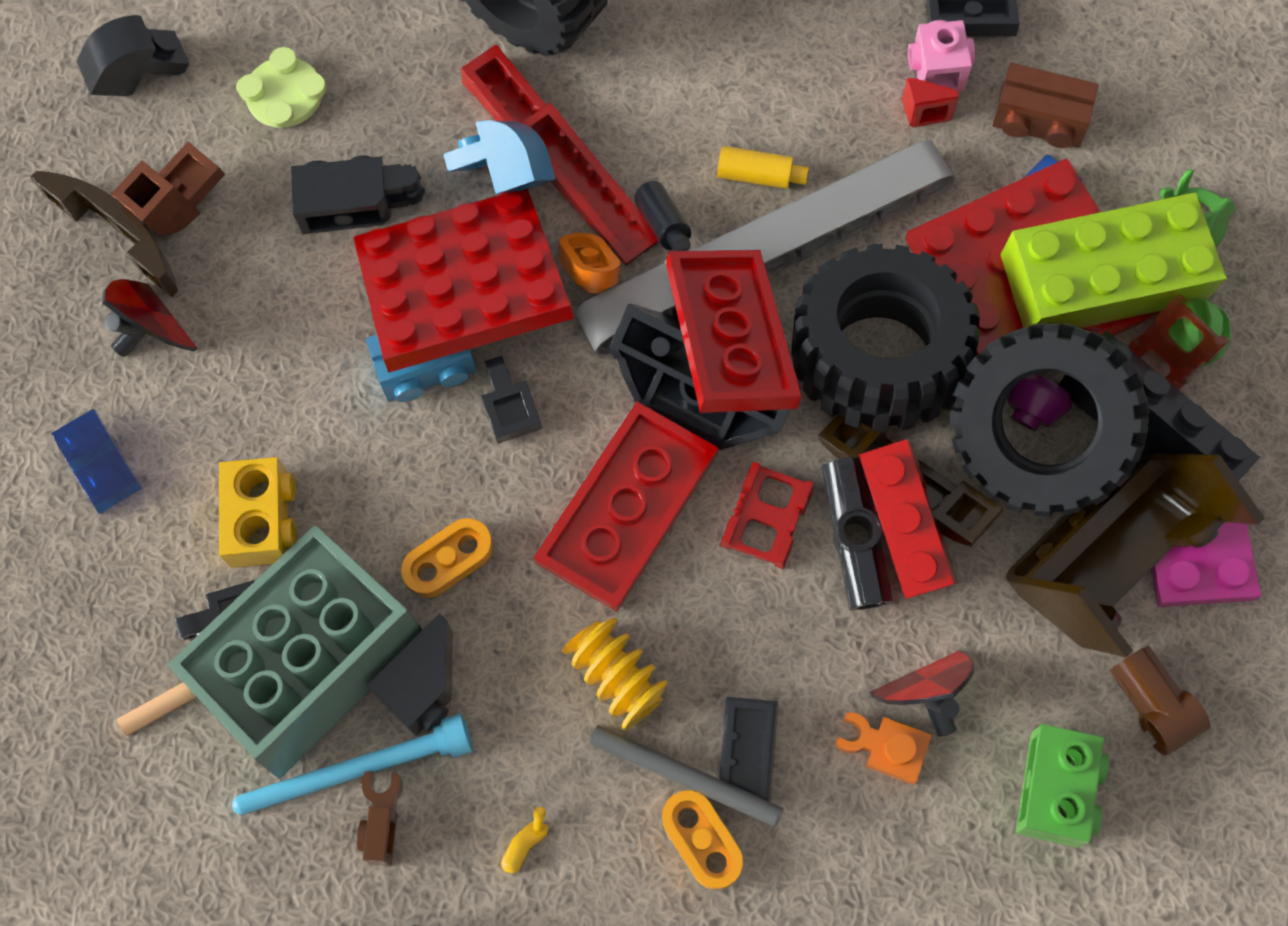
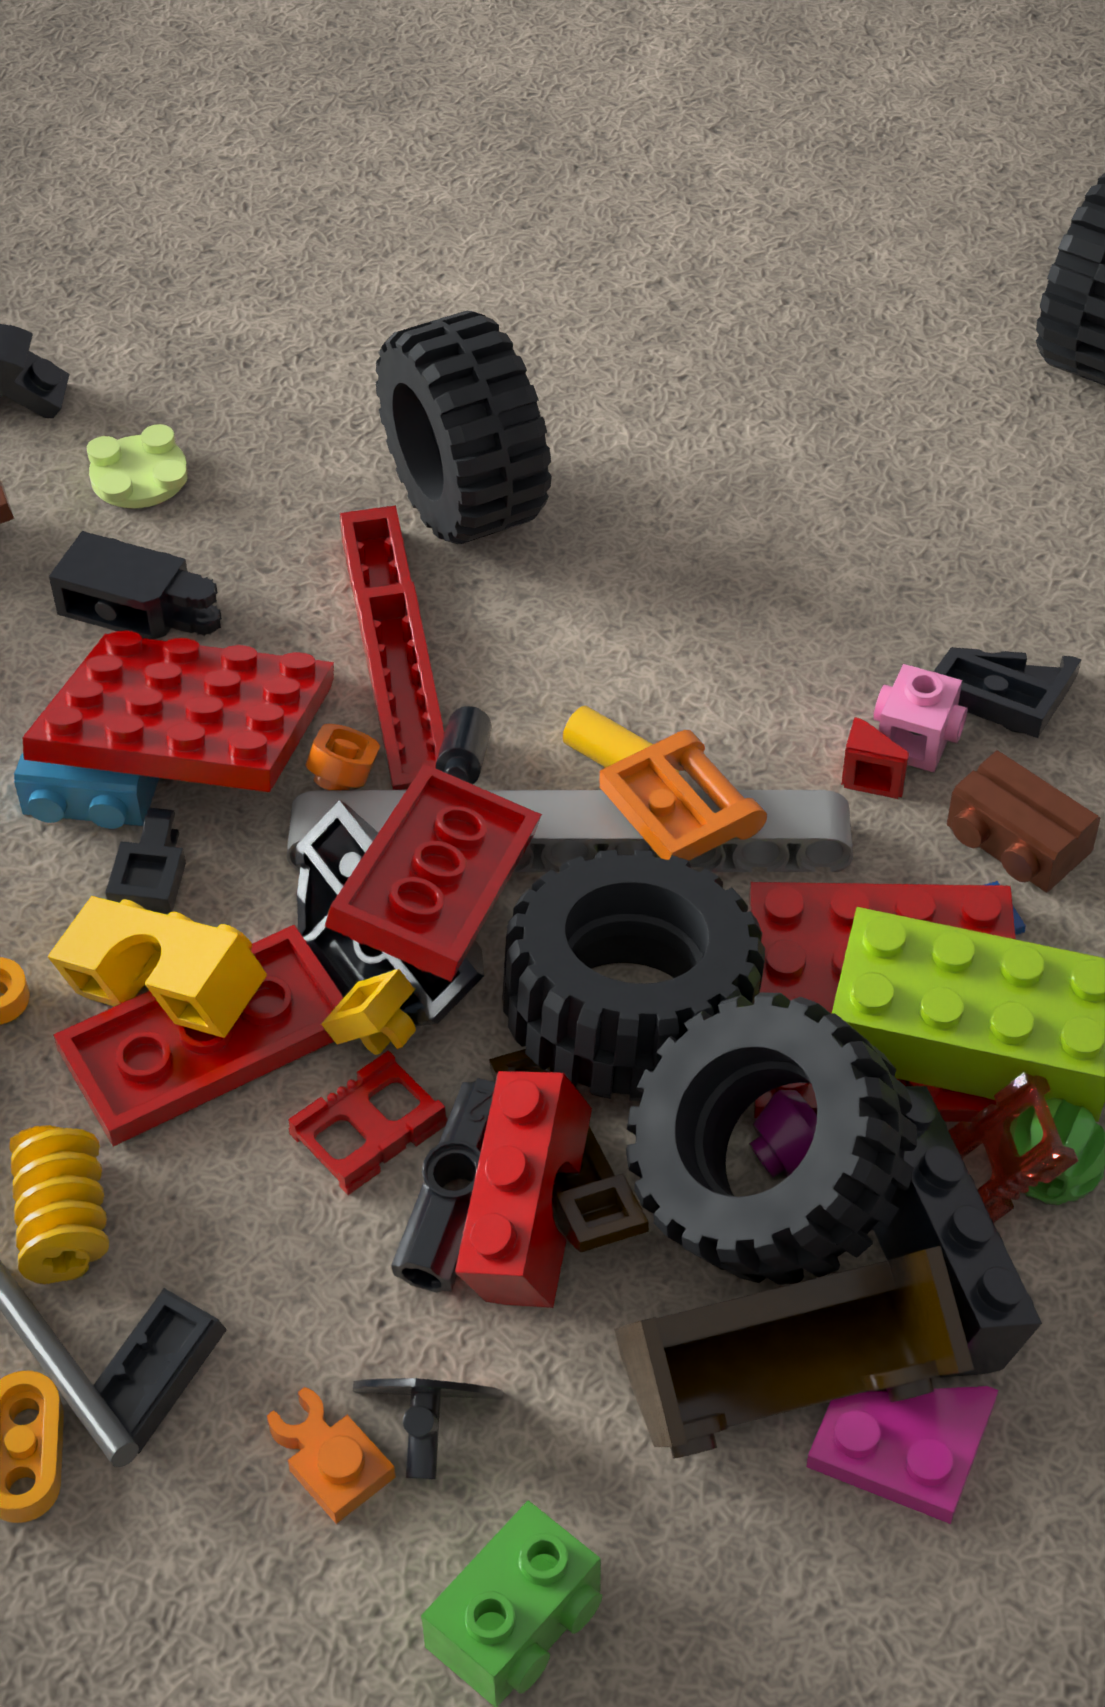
camera: 25 degrees right, 20 degrees down
(511, 151) = (323, 611): brick -> none
(536, 475) = (192, 969): none -> yellow arch
(735, 442) = (373, 1013): none -> yellow tile
(835, 205) = (666, 806): none -> orange plate
(1164, 710) = (724, 1585): reddish brown piece -> none

